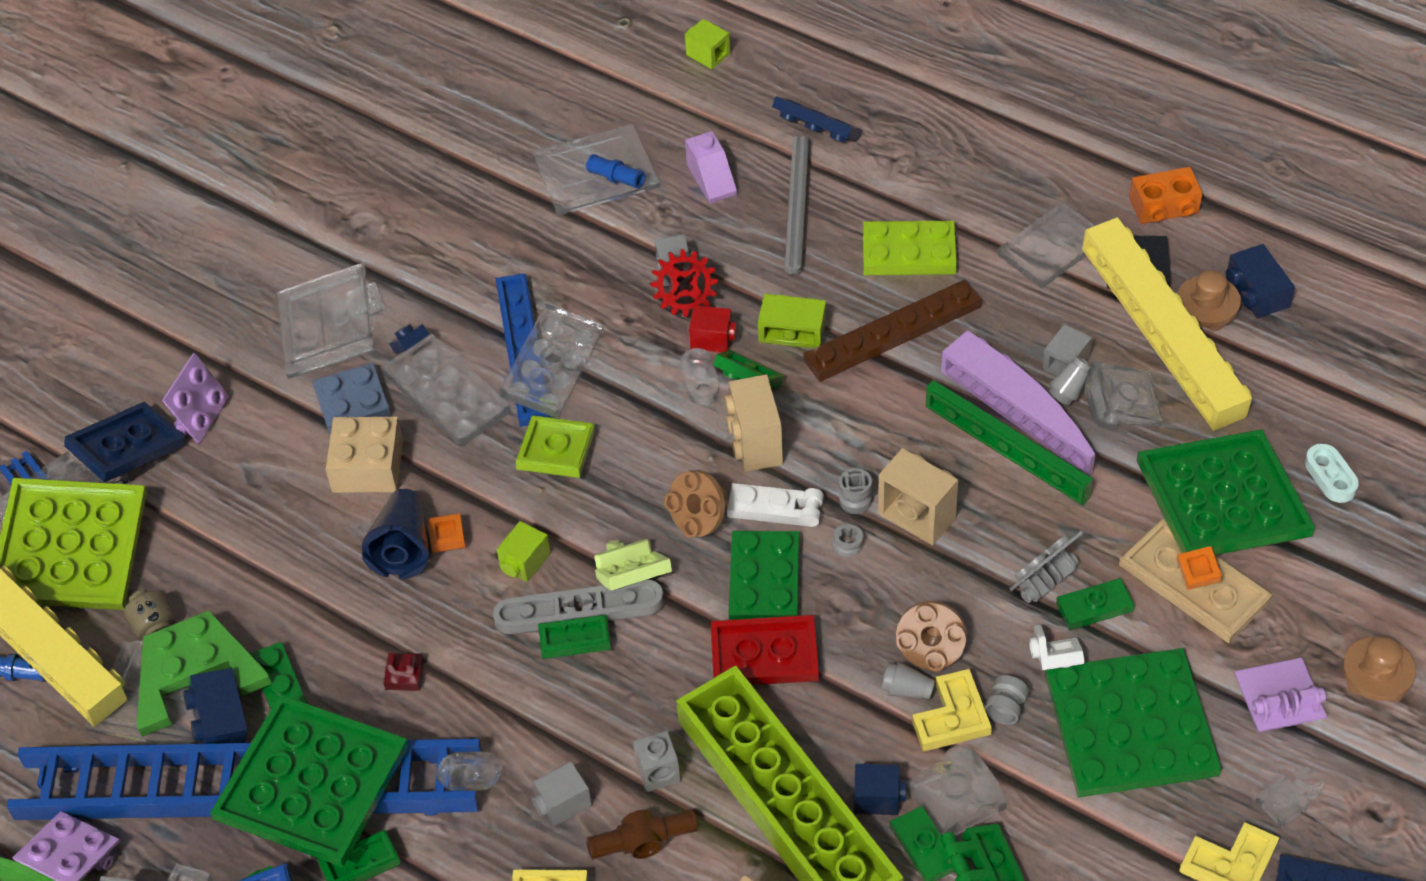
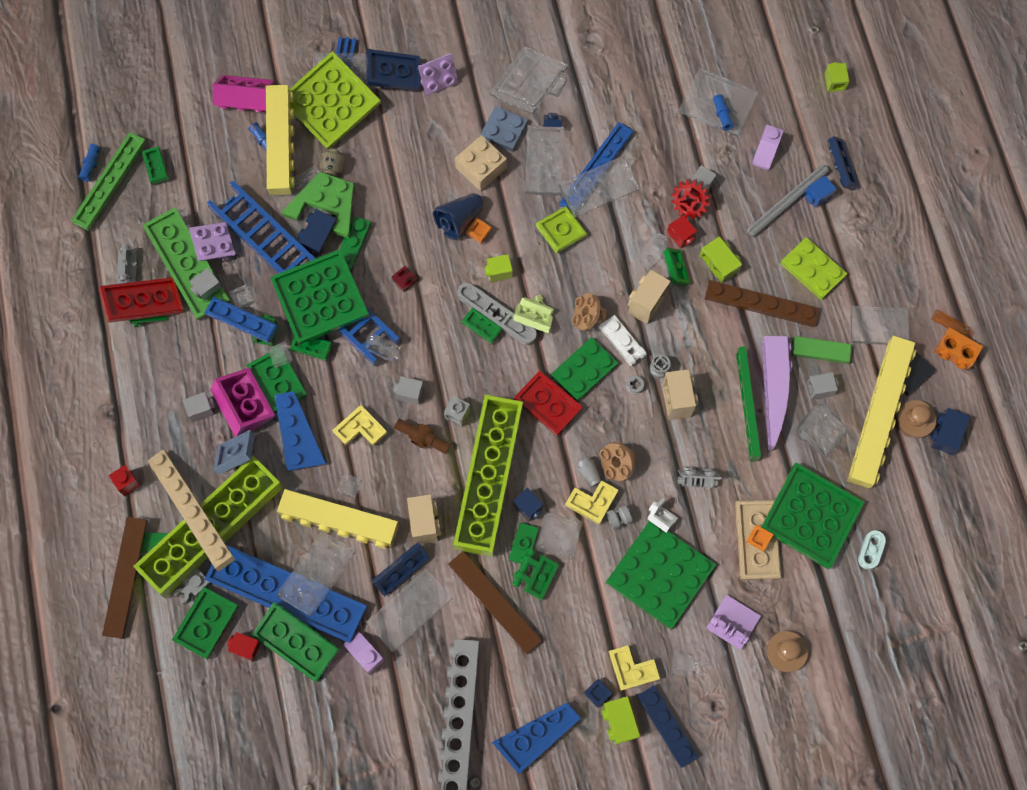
camera: 40 degrees right, 20 degrees up
(824, 164) = (820, 191): none -> blue brick
(1021, 319) = (821, 350): none -> bright green tile
(1070, 380) = (805, 401): light grey cone -> none
(1094, 604) = (703, 510): green plate -> none
(1121, 177) = (947, 321): none -> clear orange tile

